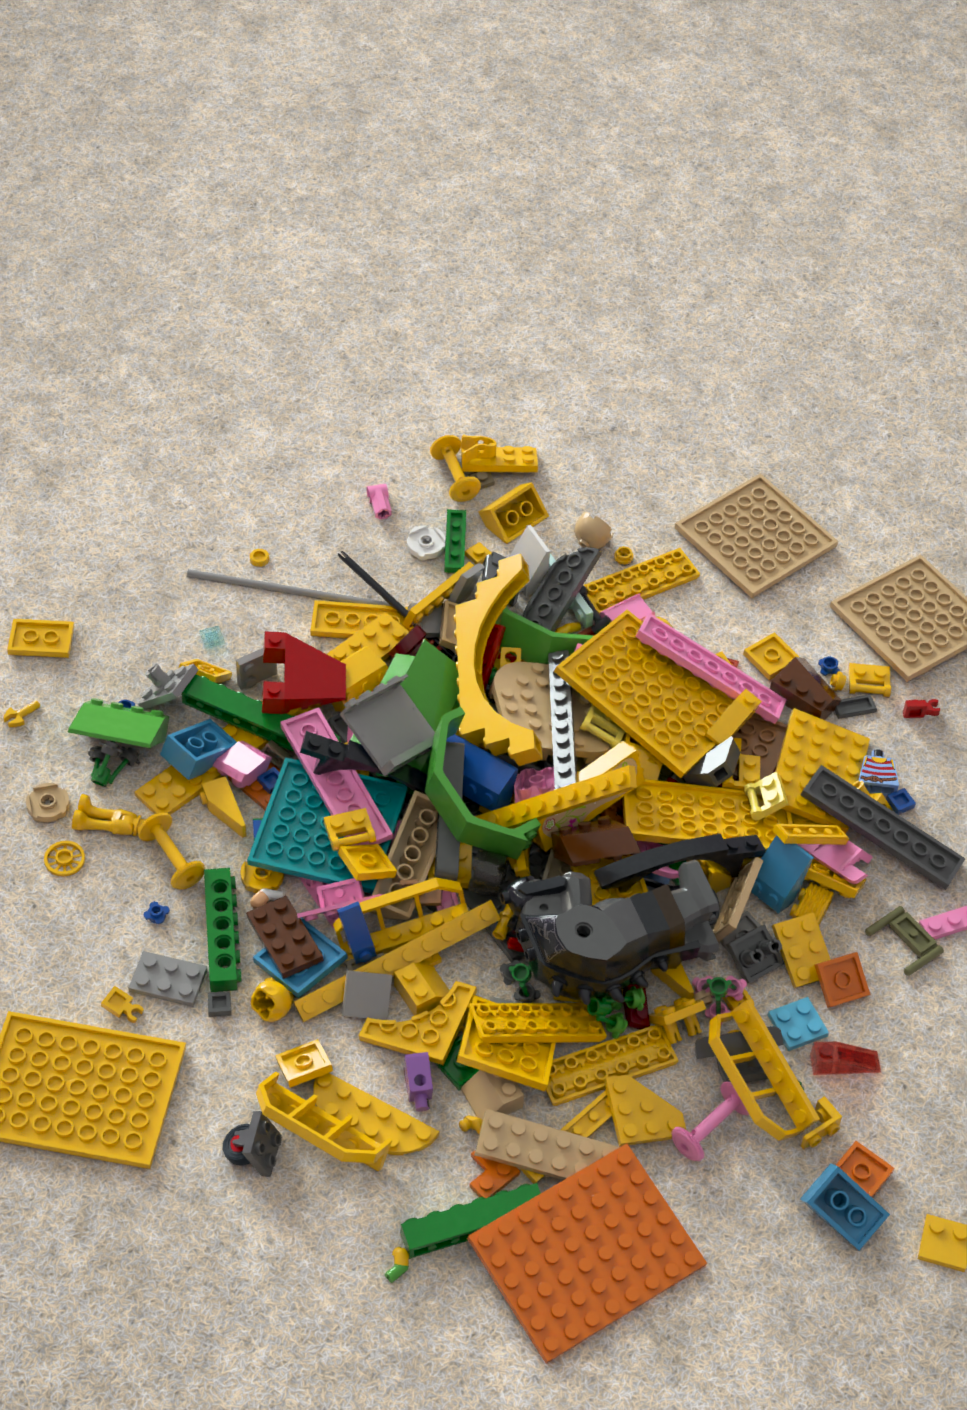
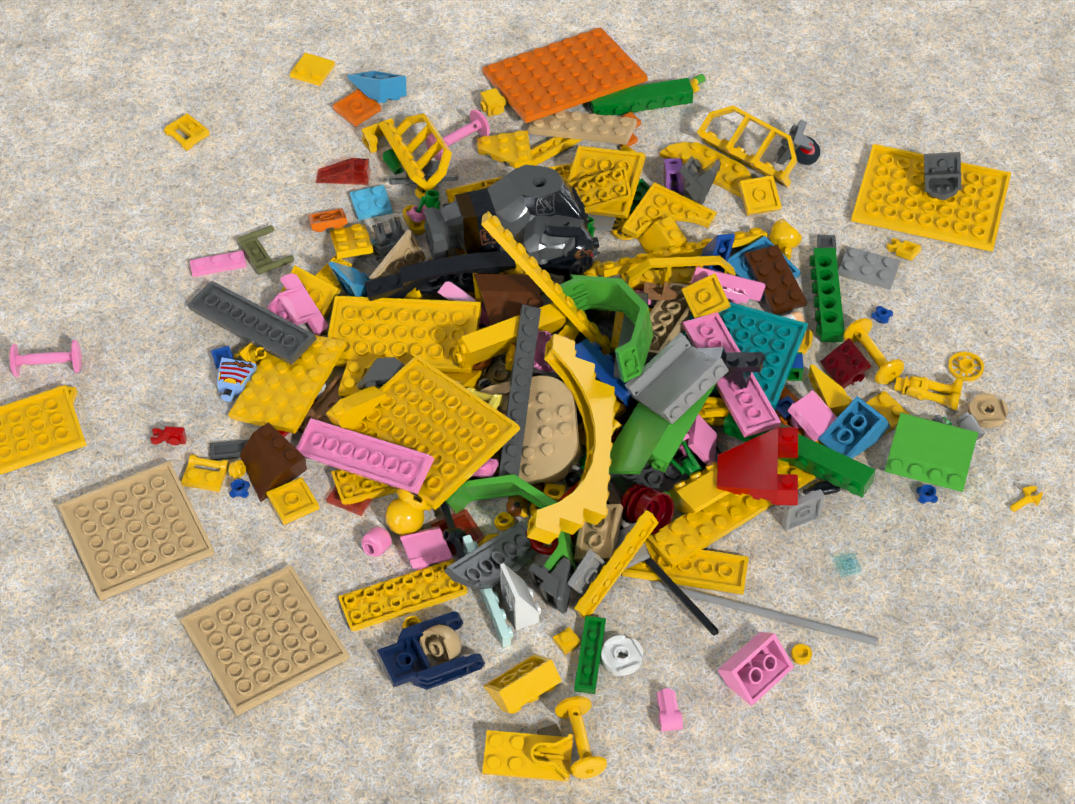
camera: 170 degrees left, 0 degrees up
(40, 638) = (1020, 572): yellow plate -> none
(63, 1100) = (942, 174): none -> dark grey piece
(71, 783) = (969, 422): none -> light grey cone
(166, 685) = (888, 491): light grey plate -> none
(203, 837) = (846, 364): none -> dark red plate
(209, 671) = (853, 514): yellow plate -> none
(304, 538) = (756, 667): none -> bright pink slope
(348, 824) = (720, 327): yellow plate -> none
(366, 995) = (708, 232): light grey tile -> none
(384, 1061) = (699, 179): none -> dark grey piece
(621, 514) = (407, 661): none -> dark blue plate
(679, 618) = (376, 541): none -> bright pink head
(679, 1193) = (492, 102): none -> yellow brick
(772, 793) = (341, 340): light yellow plate -> none
(810, 834) = (321, 292): yellow tile -> none

